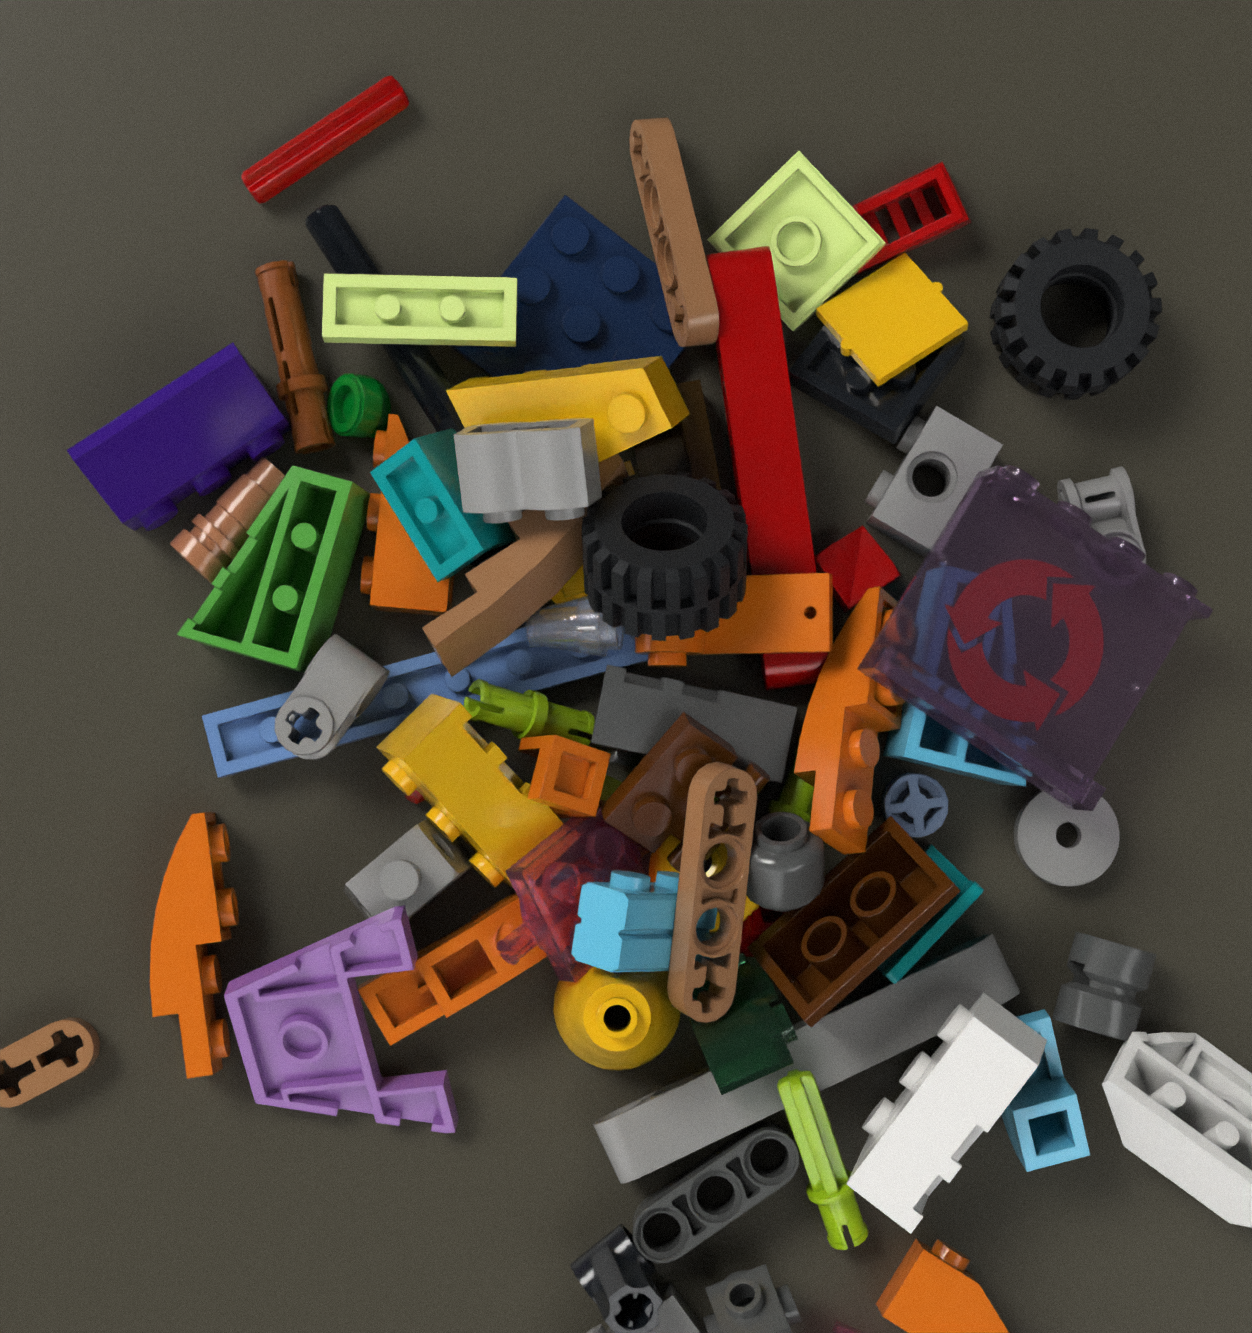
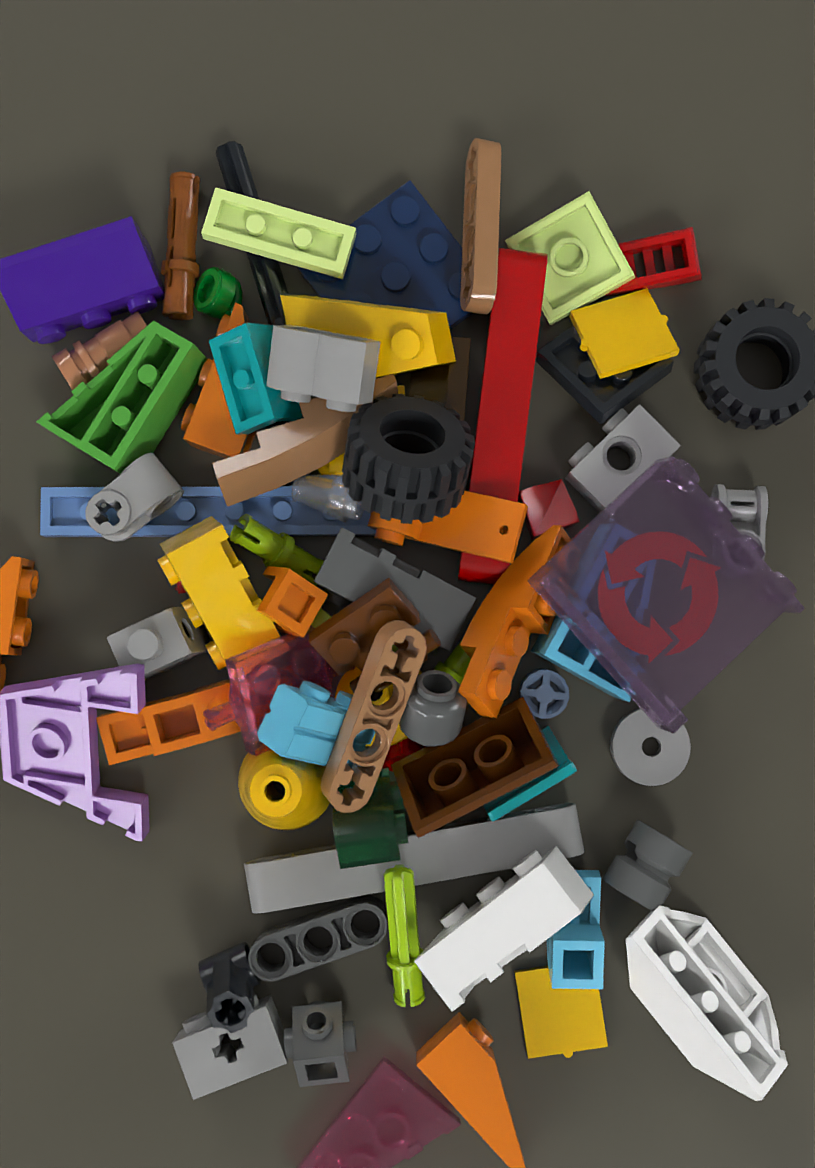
camera: 25 degrees right, 0 degrees up
(325, 139) = (247, 95): red axle -> none
(1044, 1208) = (558, 1018): none -> yellow piece

